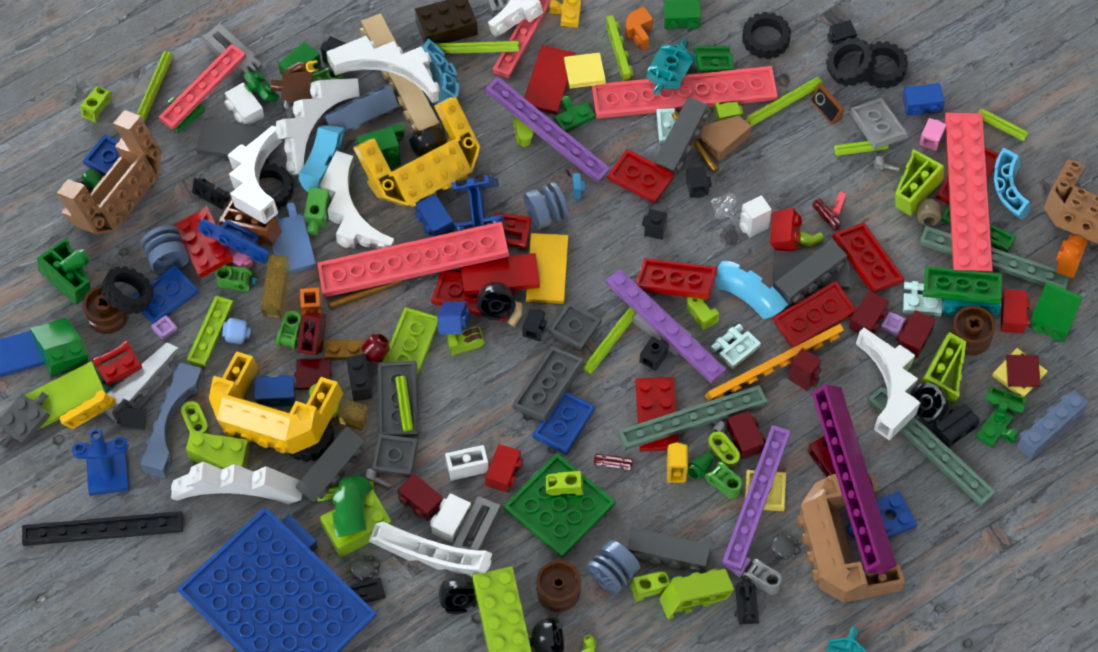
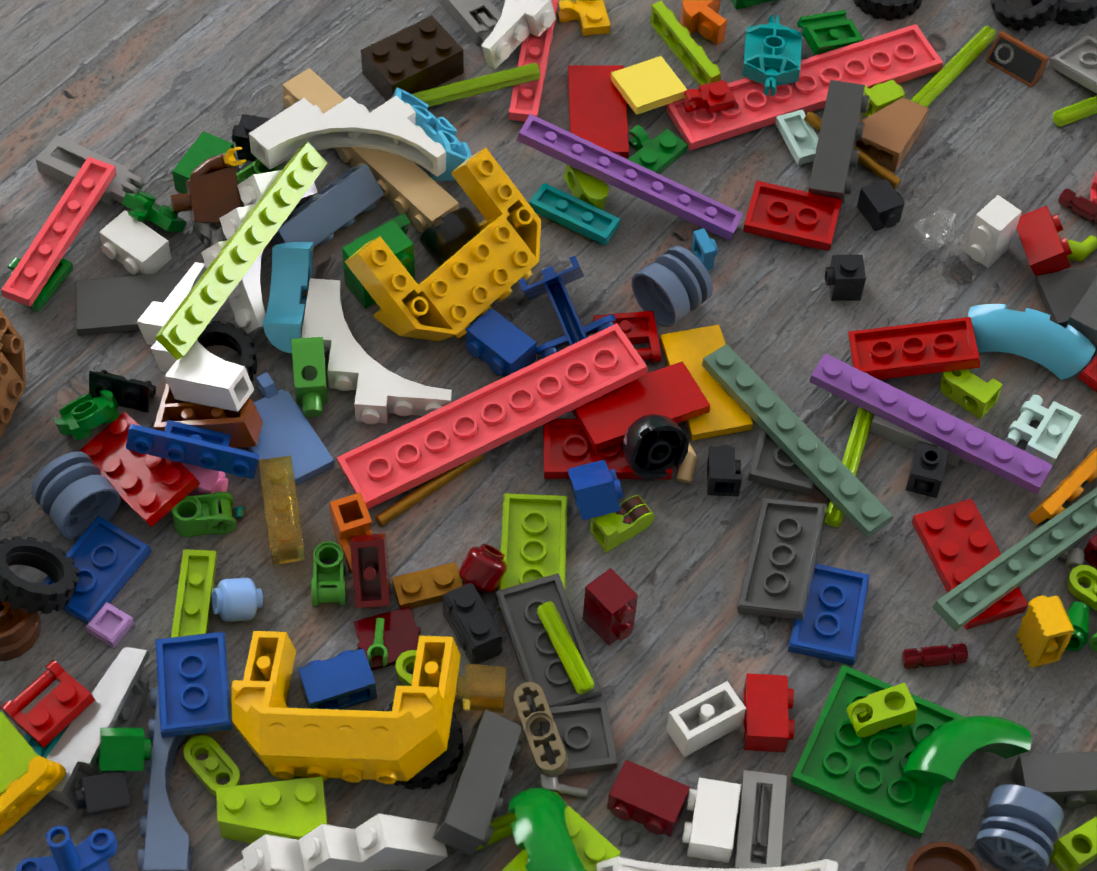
camera: 20 degrees left, 5 degrees down
(148, 398) = (123, 749): none -> green brick
(185, 203) = (86, 413): none -> green plate
(195, 372) = (193, 684): none -> blue tile
(299, 125) = (240, 252): none -> plate
(303, 378) = (378, 646): none -> bright green hand
(379, 451) = (542, 715): none -> dark tan beam
(436, 387) = (610, 607): none -> dark red brick
(509, 144) = (575, 214): none -> teal plate
(582, 317) = (797, 441): none -> sand green plate
(612, 509) = (947, 747): none -> green brick
(620, 87) = (711, 96): none -> red plate

